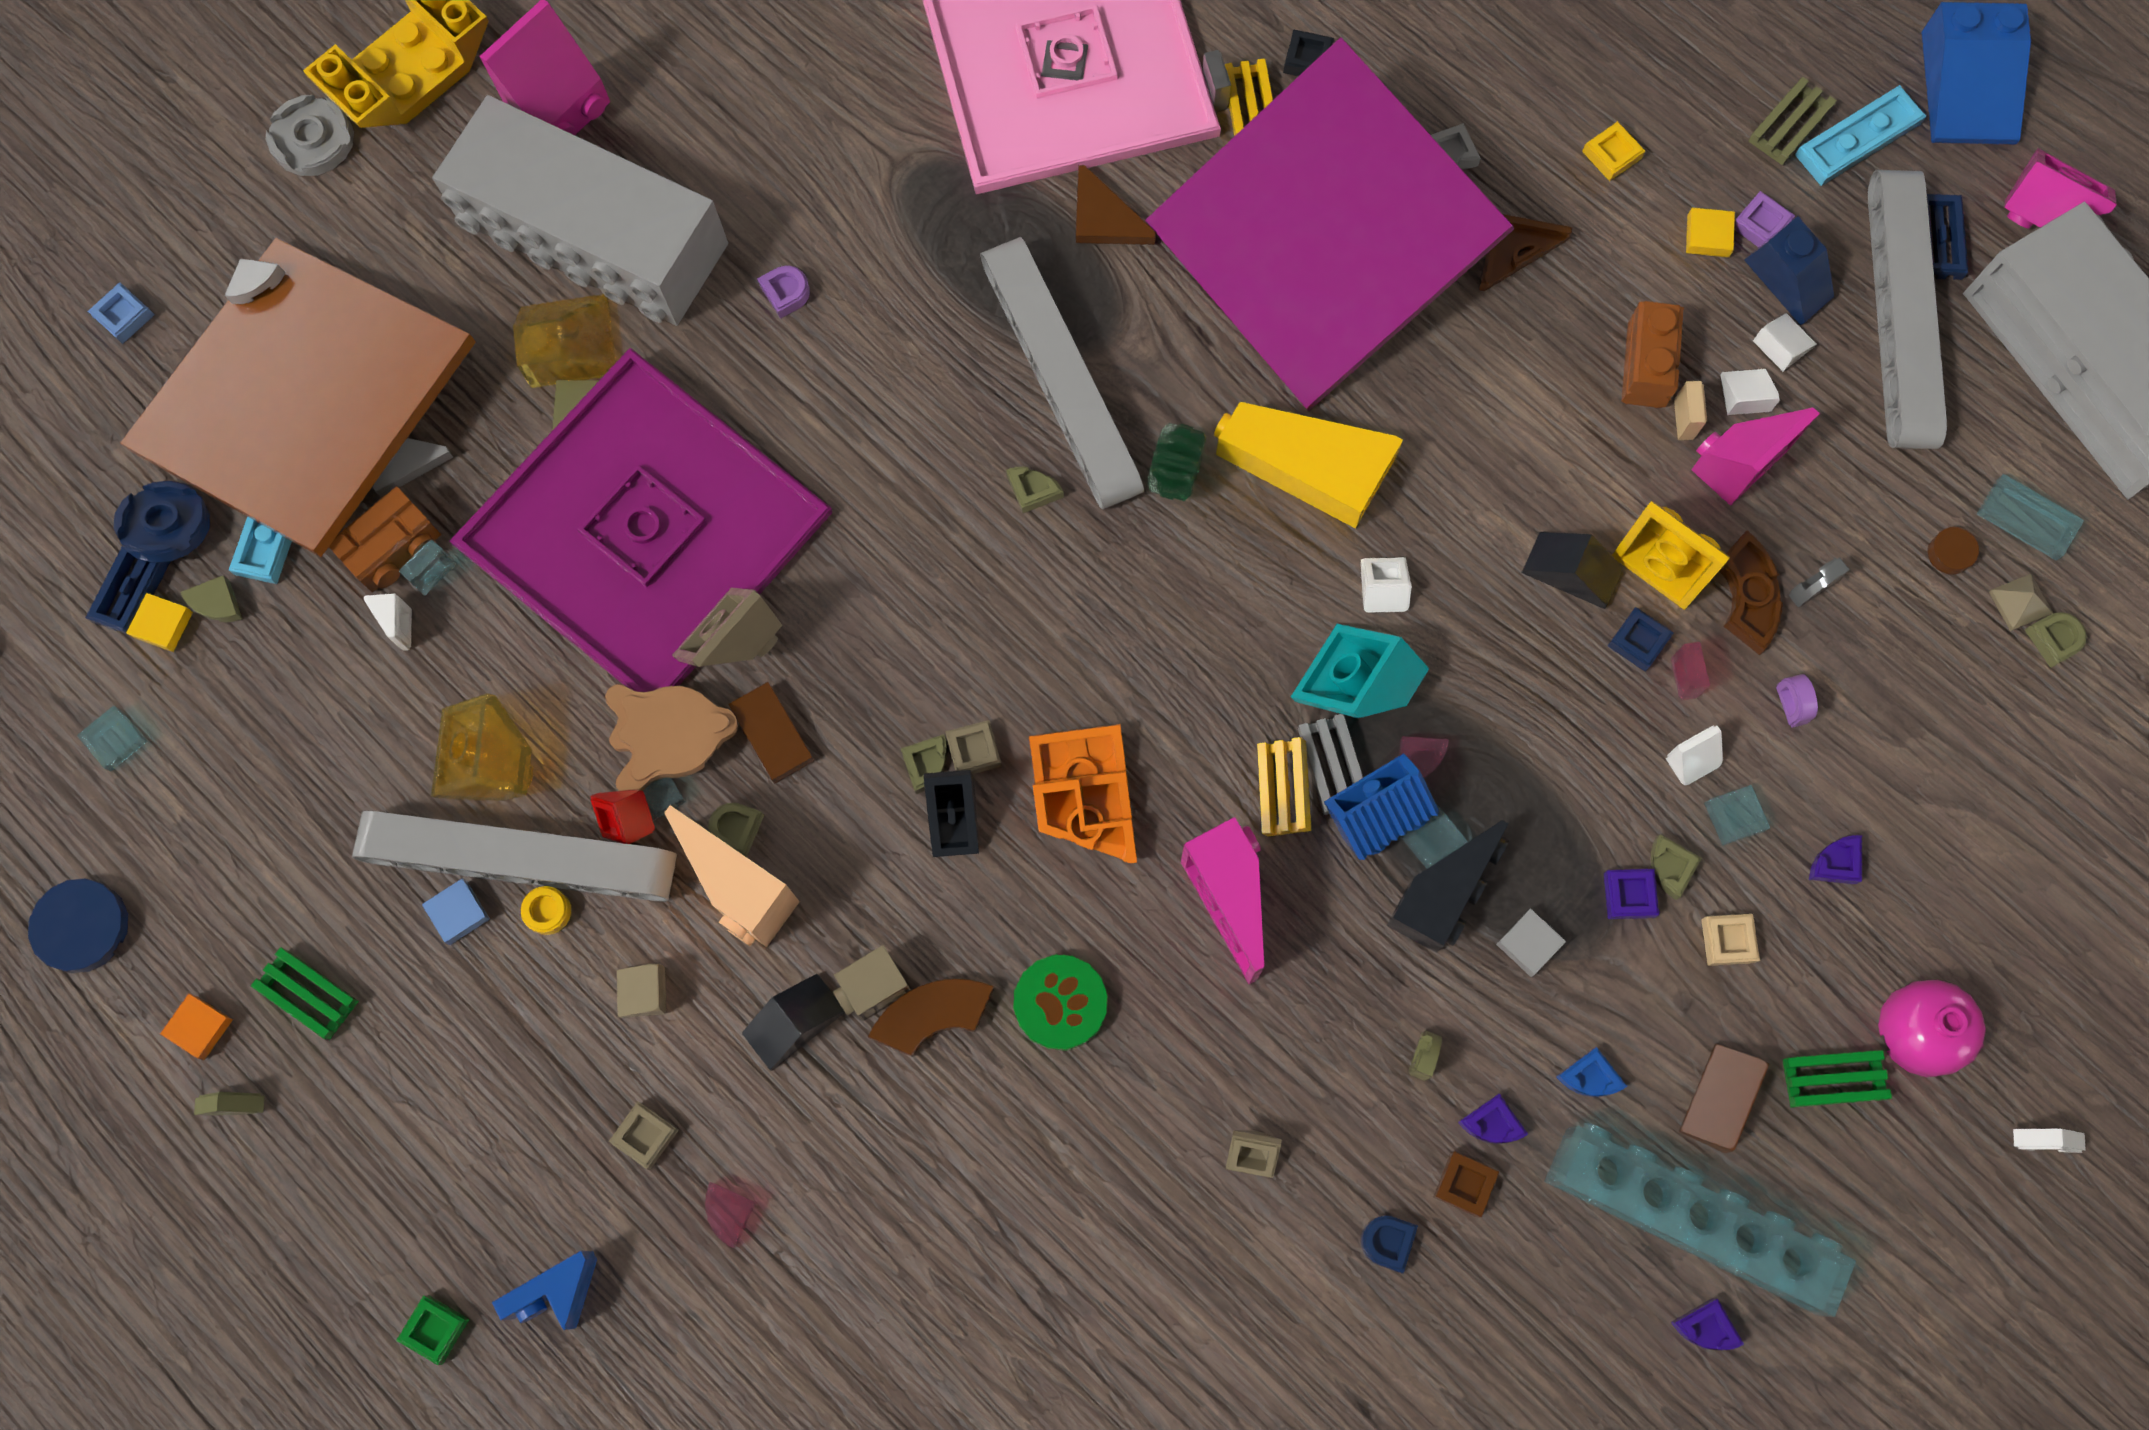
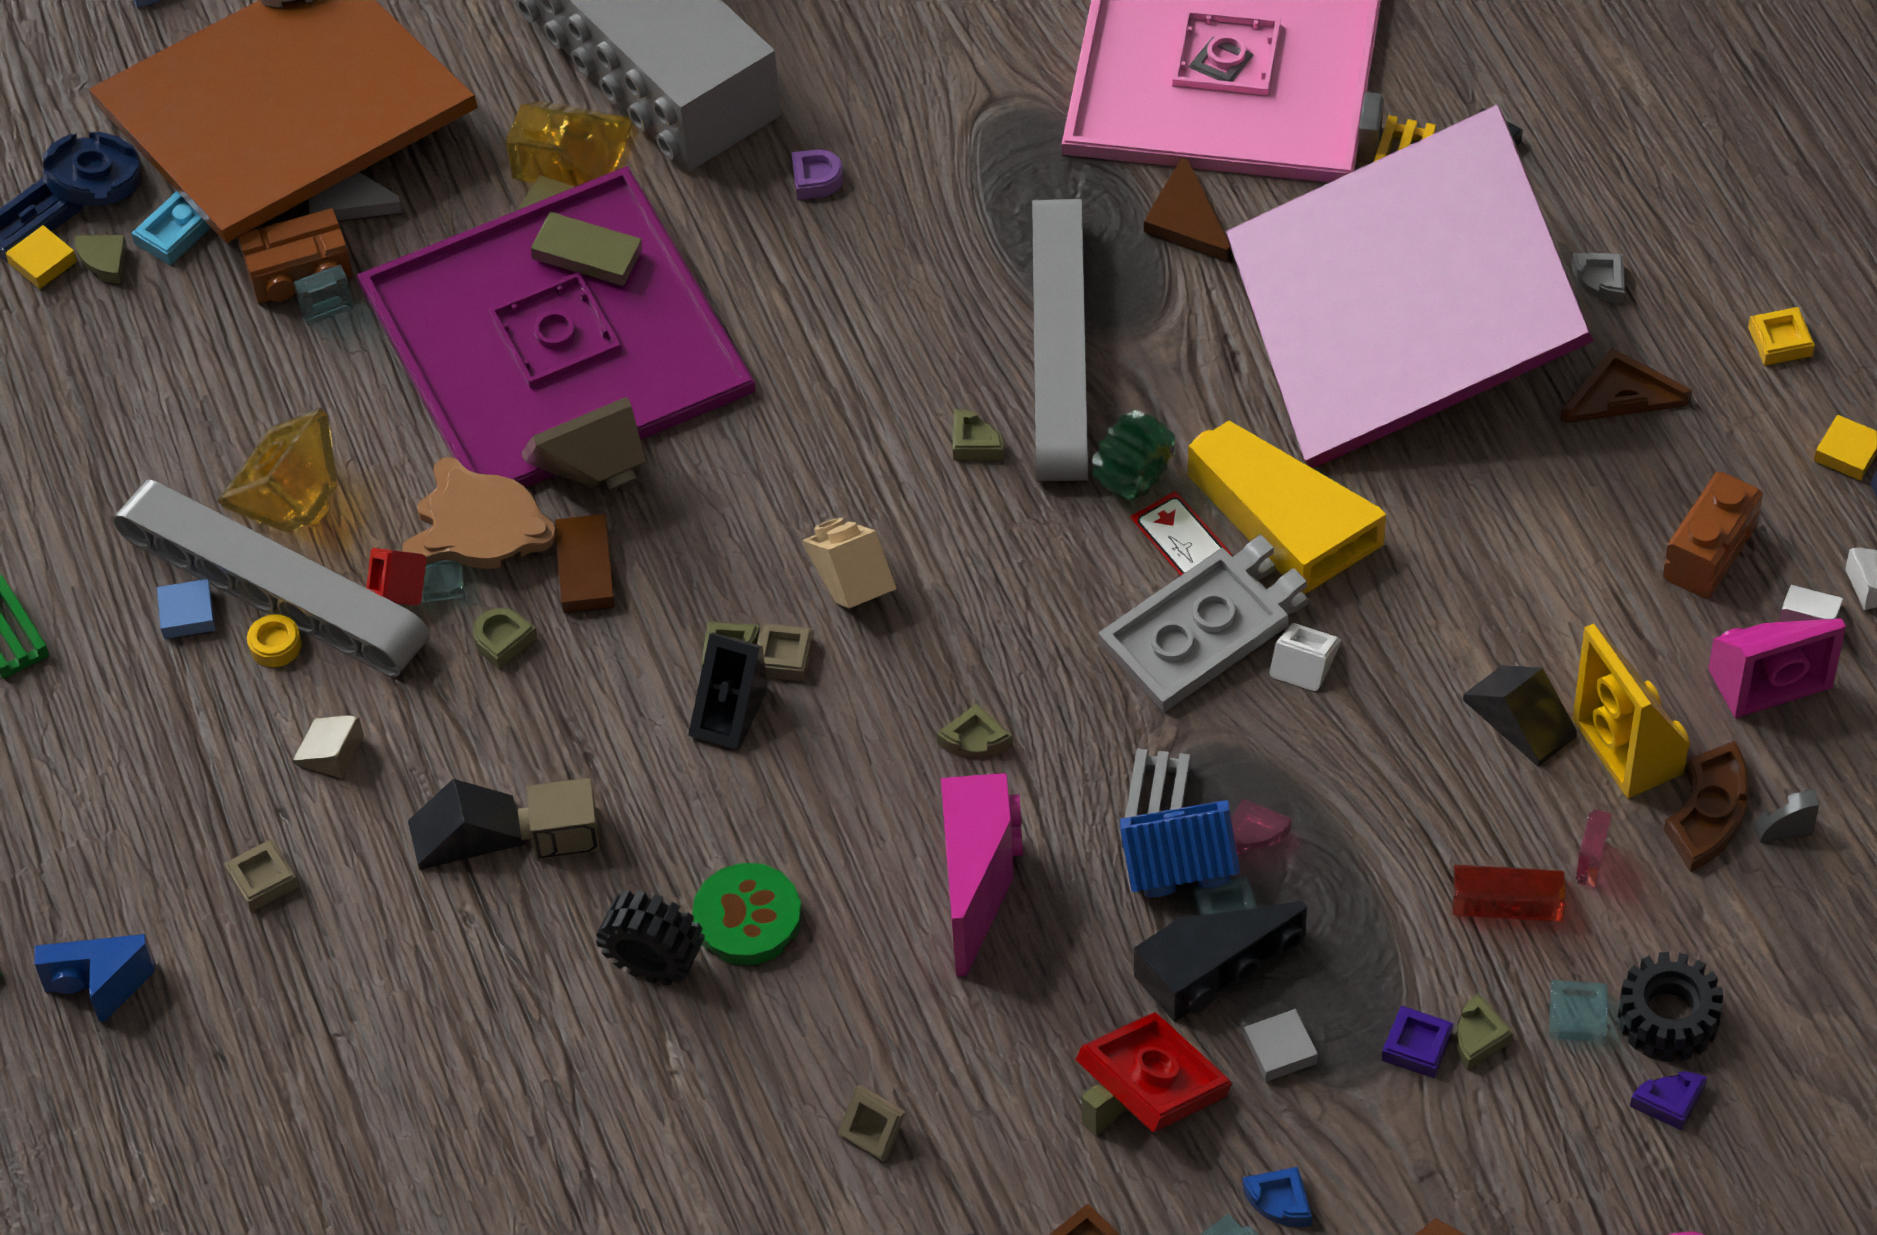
camera: 25 degrees right, 20 degrees down
(393, 617) = (267, 325): white slope -> none
(633, 440) = (586, 248): none -> olive tile
(727, 1213) = (306, 974): clear pink tile -> none
(744, 893) = (477, 673): light nougat slope -> none
(929, 1010) = (606, 870): reddish brown tile -> none
(992, 648) = (849, 561): none -> tan slope
(1002, 1070) = (650, 937): none -> black tyre
(1084, 789) = (879, 726): orange slope -> none
(1163, 762) = (974, 735): none -> olive tile
(1236, 512) = (1177, 532): none -> white sticker
(1267, 787) = (1081, 798): yellow tile -> none
(1294, 590) = (1203, 622): none -> light grey tile
(1361, 673) = (1233, 719): teal slope -> none
(1453, 1016) = (1154, 1071): none -> red tile
(1493, 1122) = (1147, 1199): dark purple tile -> none
(1639, 731) = (1508, 893): none -> clear red slope
(1640, 639) = (1558, 805): dark blue tile -> none
(1690, 410) = (1729, 601): tan tile -> none
(1697, 755) = (1560, 931): white slope -> none
(1730, 939) = (1505, 1126): tan tile -> none
(1798, 699) = (1702, 922): medium lavender tile -> none
(1831, 772) = (1674, 979): none -> black tyre

